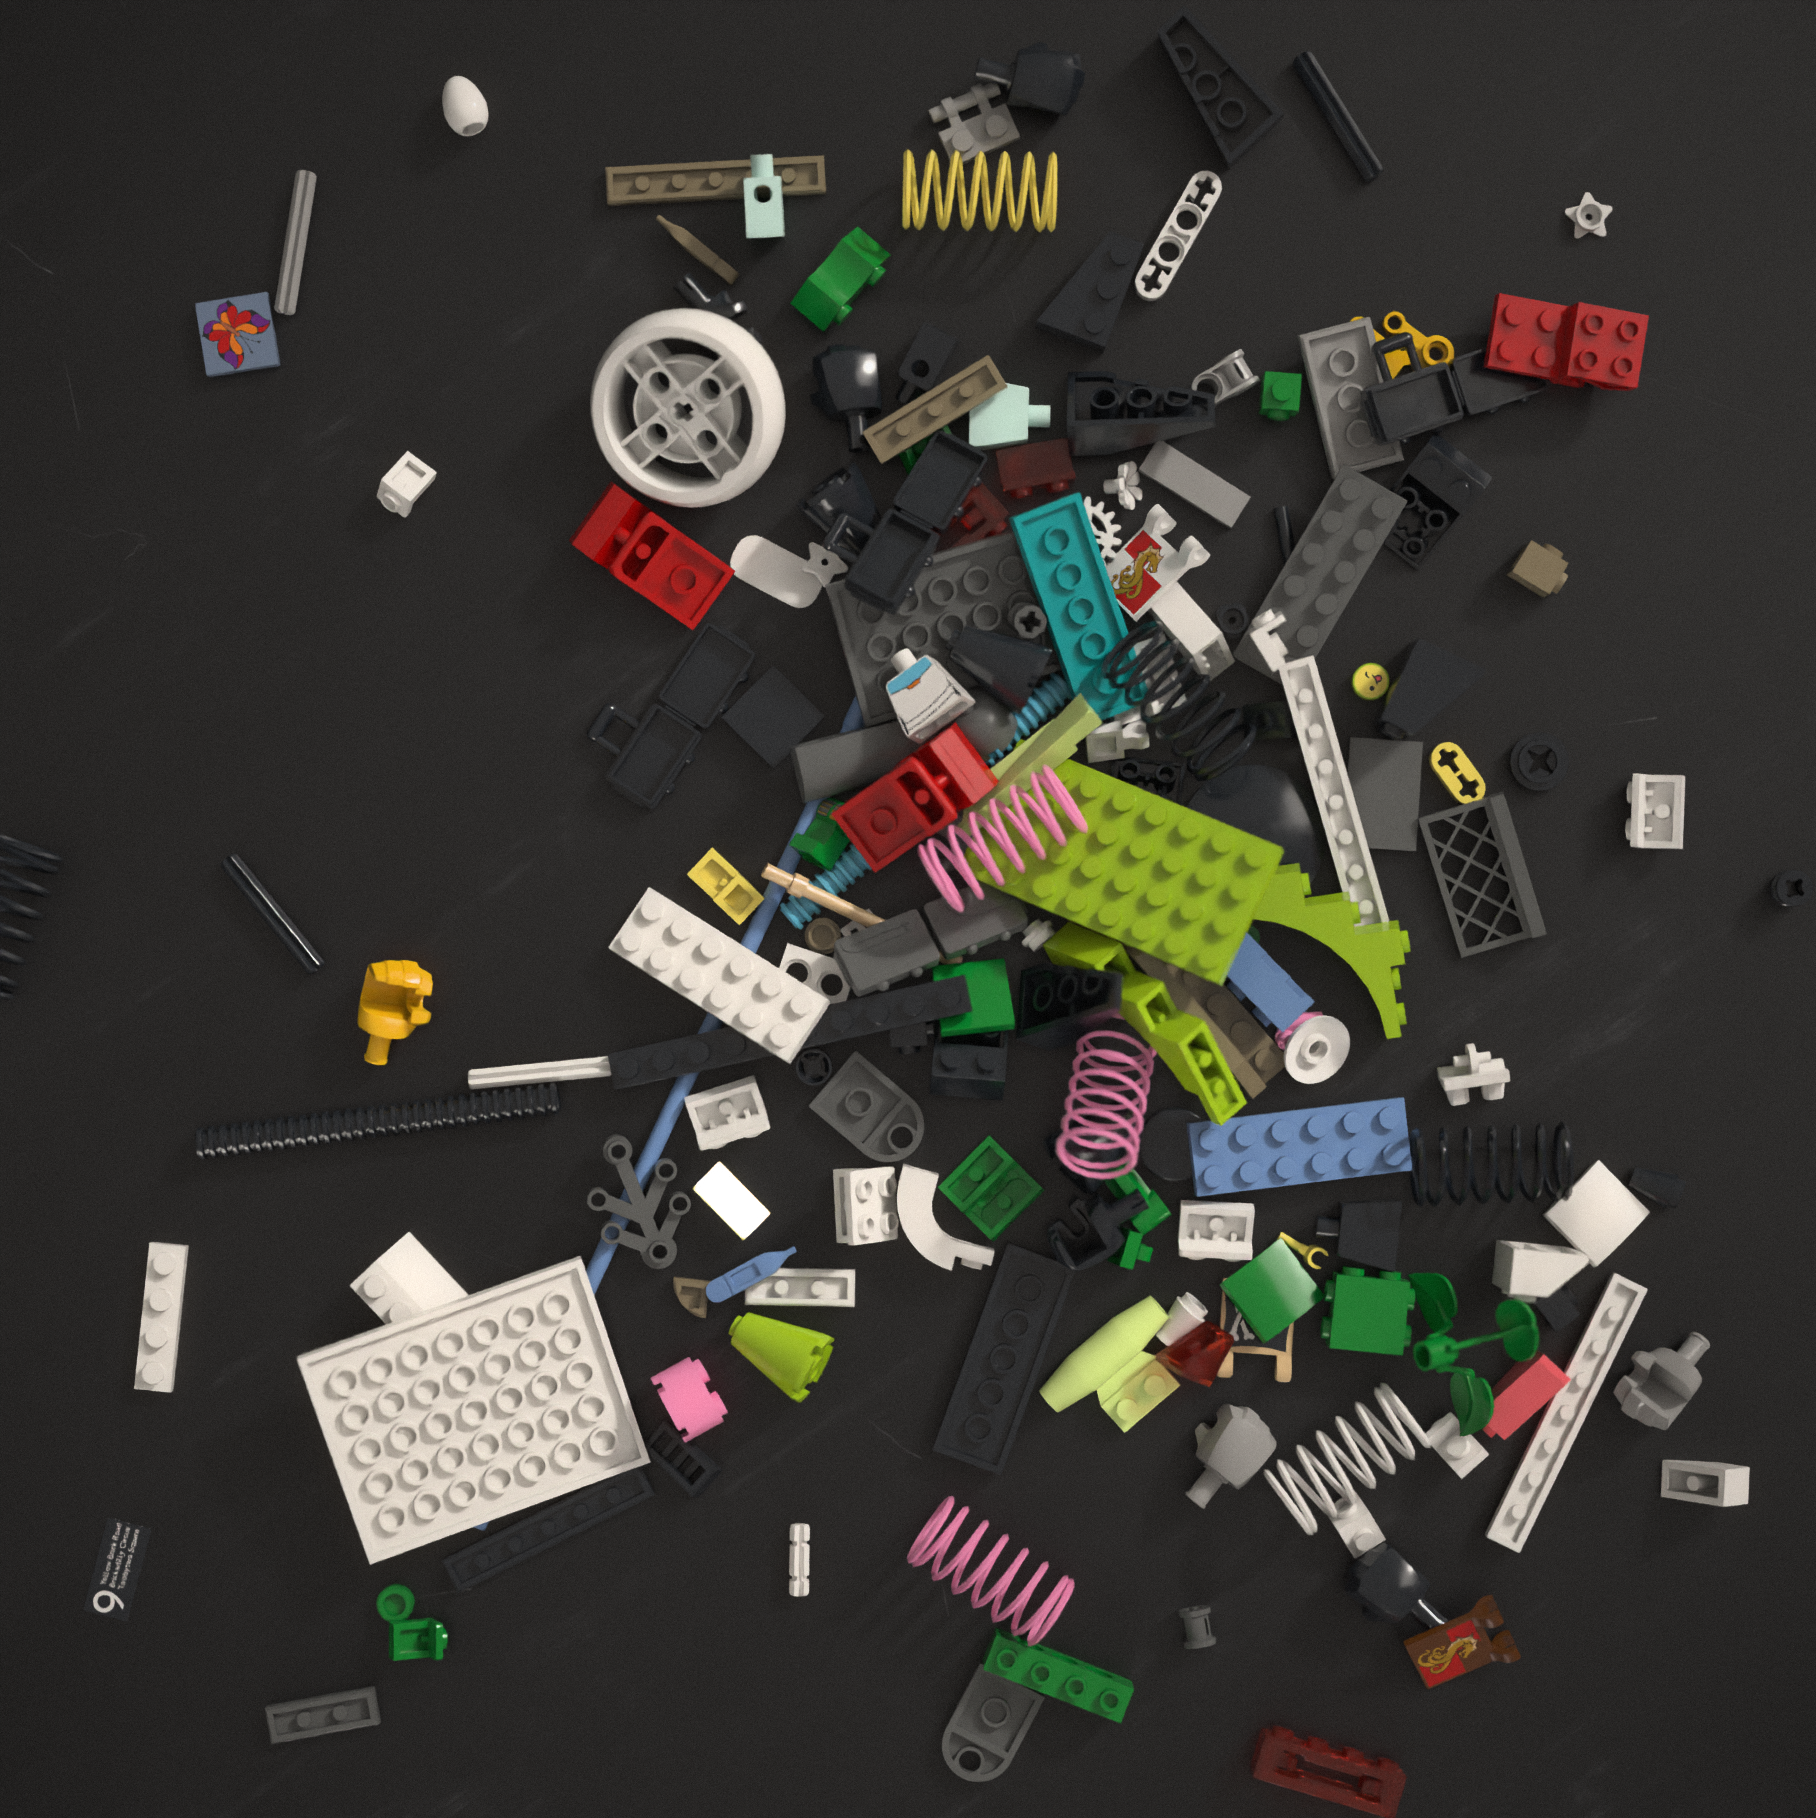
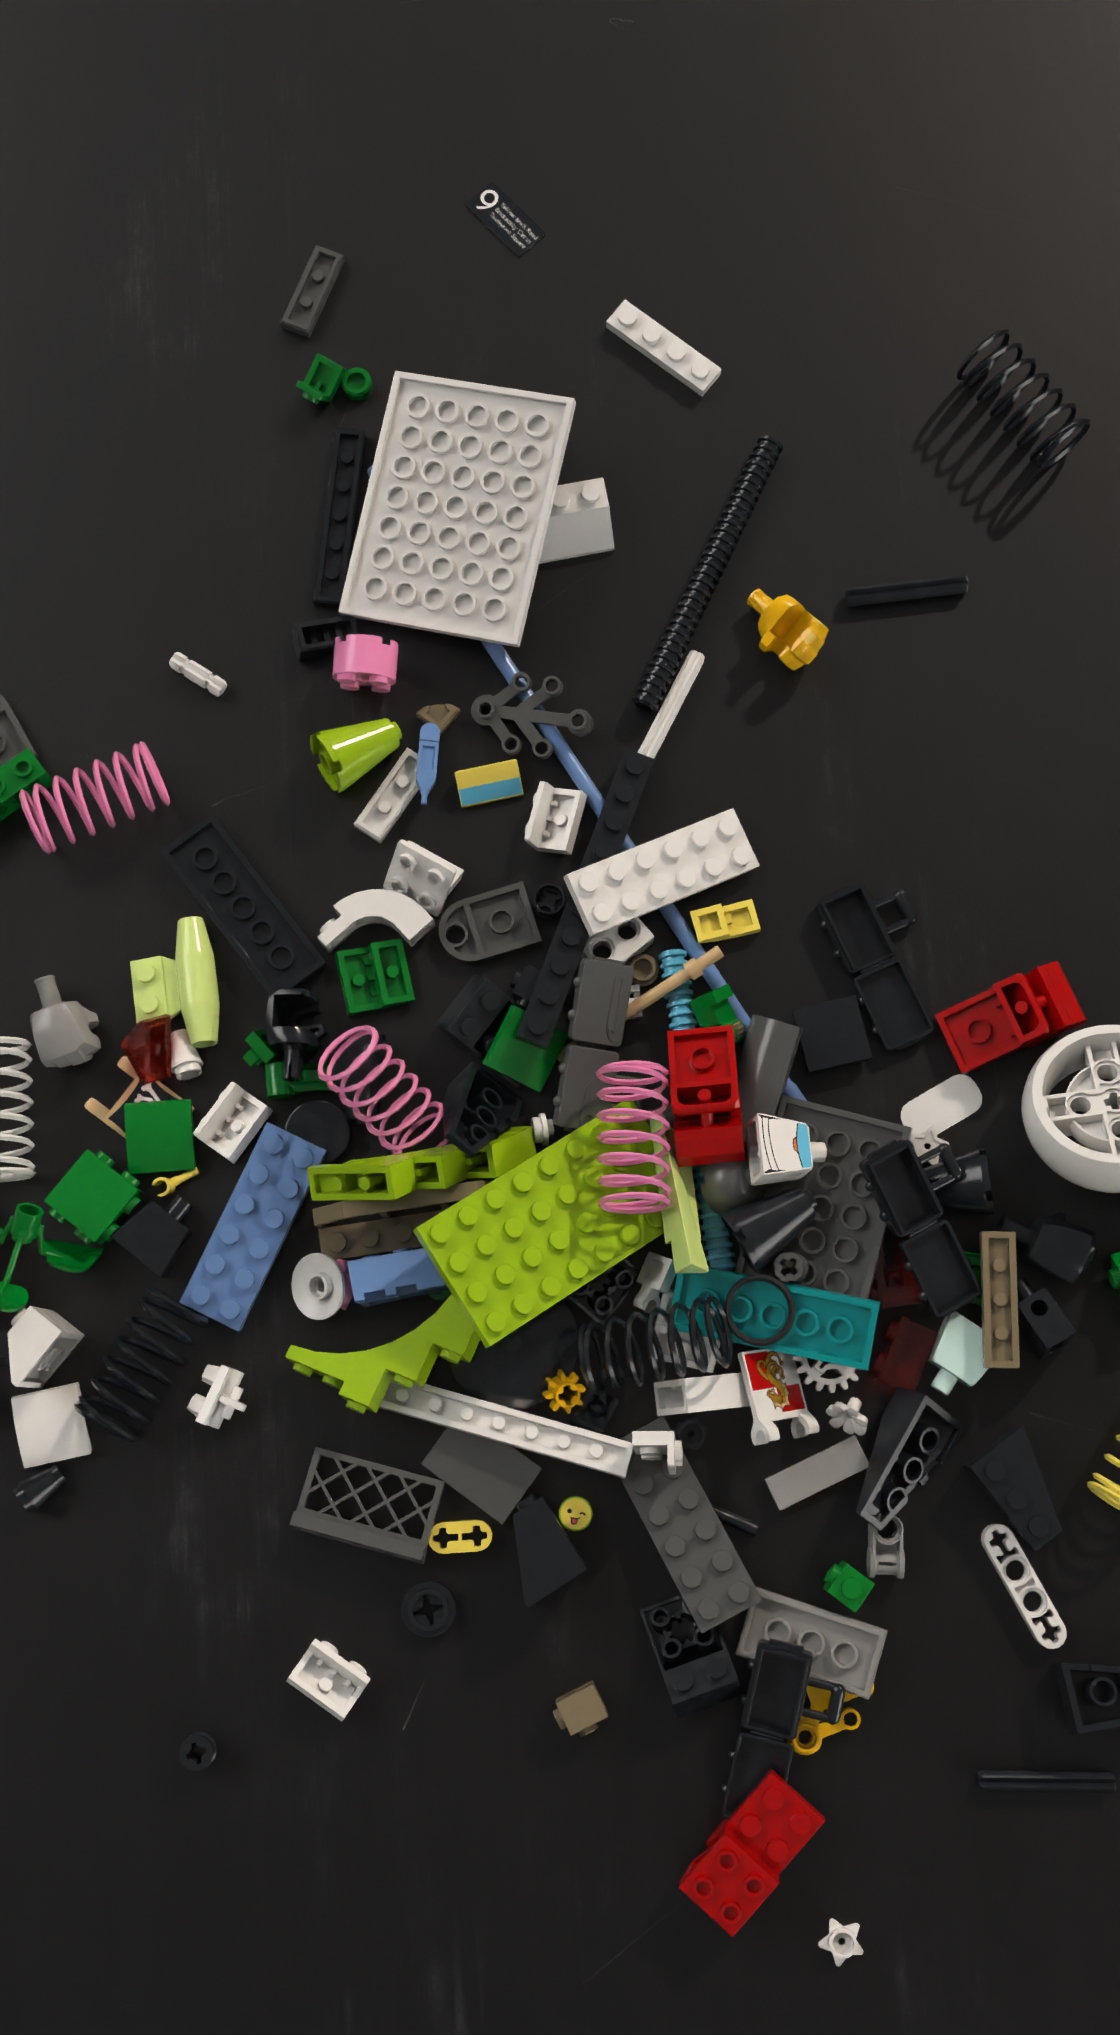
camera: 120 degrees right, 10 degrees down
(1052, 618) = (791, 1309): none -> black tyre
(1263, 753) = (556, 1387): none -> yellow gear

